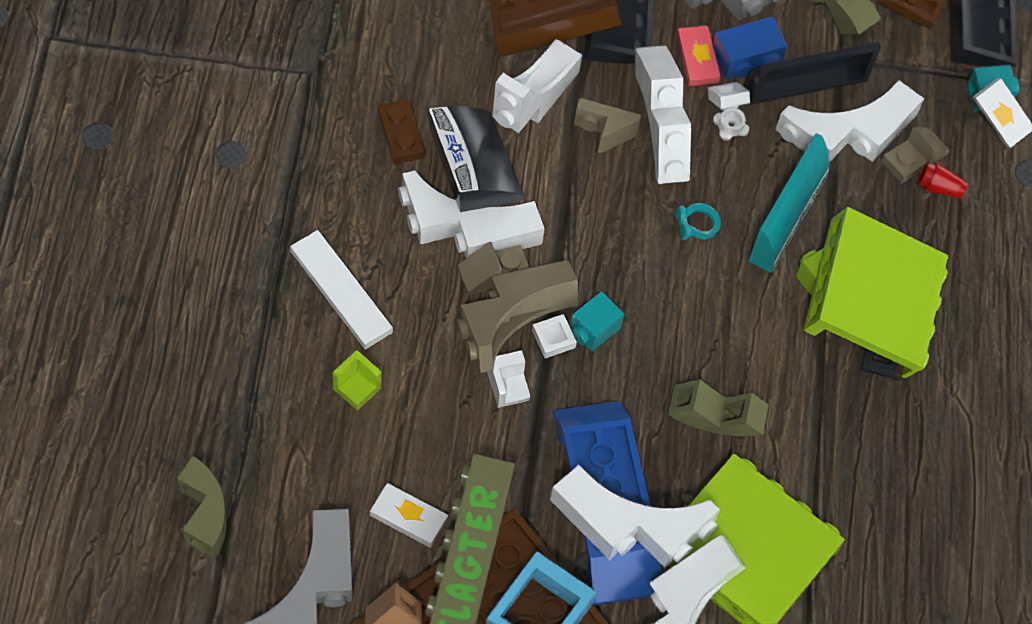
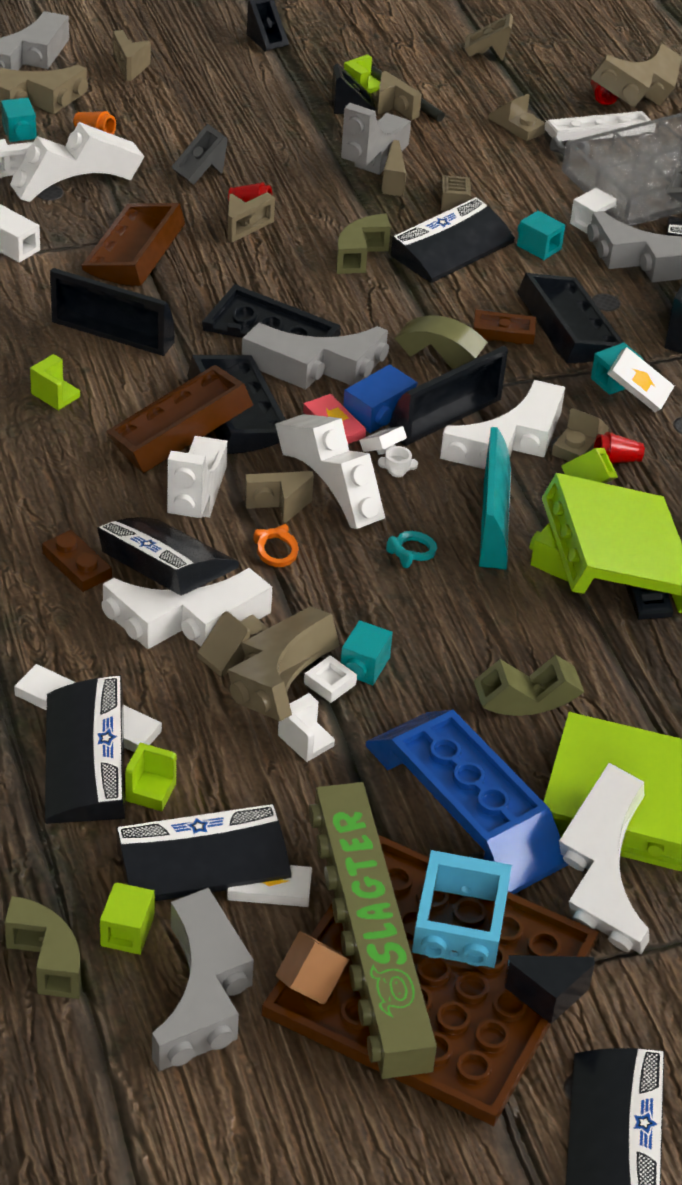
camera: 20 degrees left, 20 degrees down
(278, 506) = (127, 918): none -> lime panel
(317, 334) = (85, 752): none -> black slope
(365, 469) = (204, 852): none -> black slope
(589, 165) = (260, 538): none -> orange piece
(616, 522) = (501, 793): white arch -> none
(901, 197) = (592, 466): none -> lime panel

